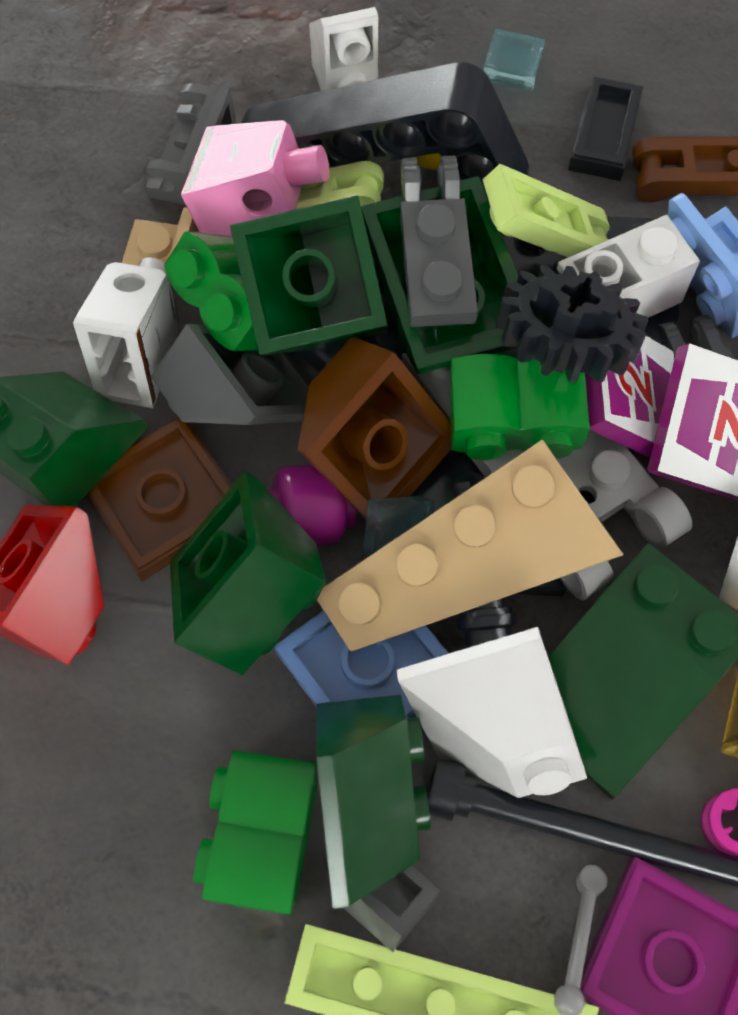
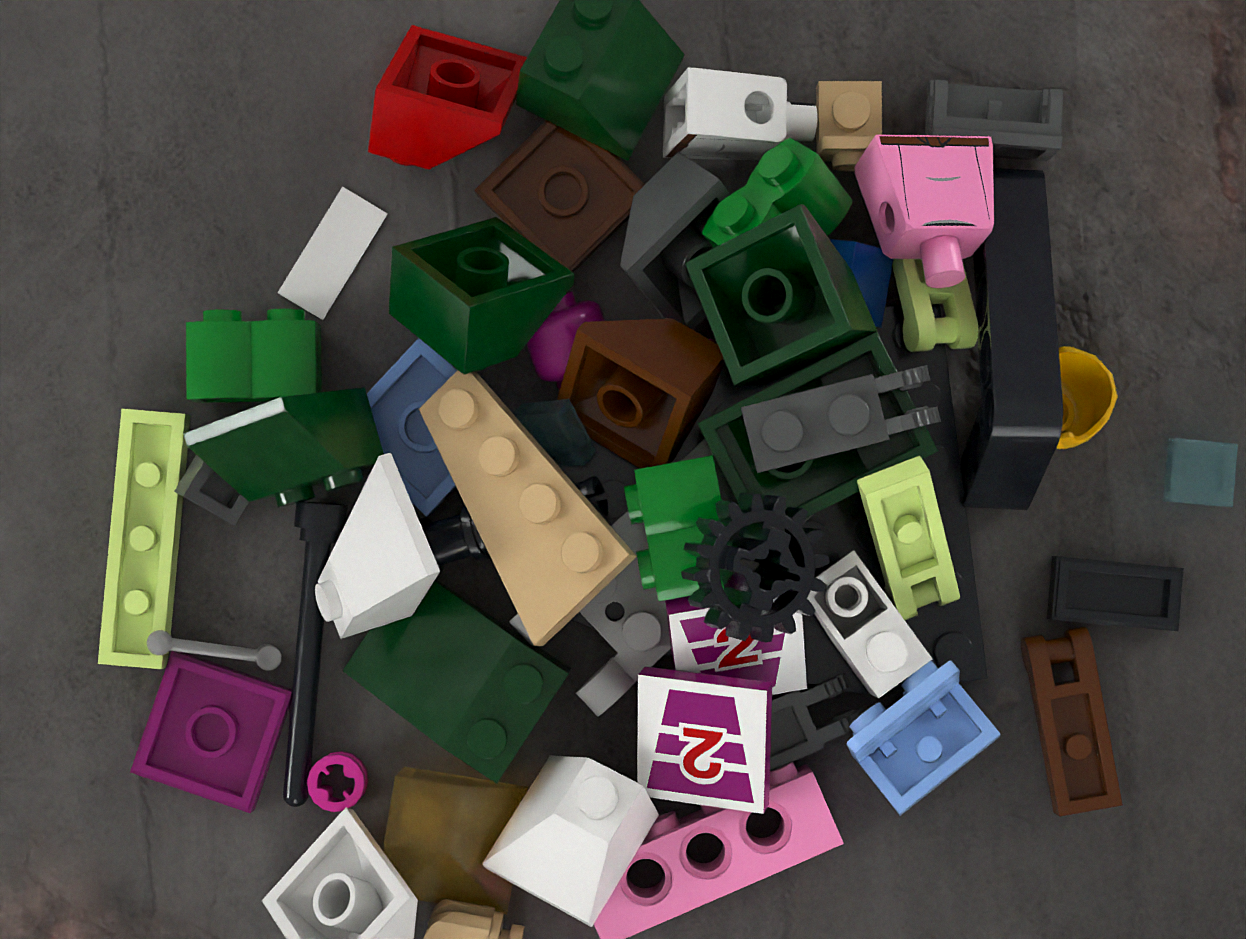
camera: 80 degrees right, 20 degrees up
(165, 735) = (332, 253): none -> white sticker
(345, 48) = (1144, 270): white slope -> none

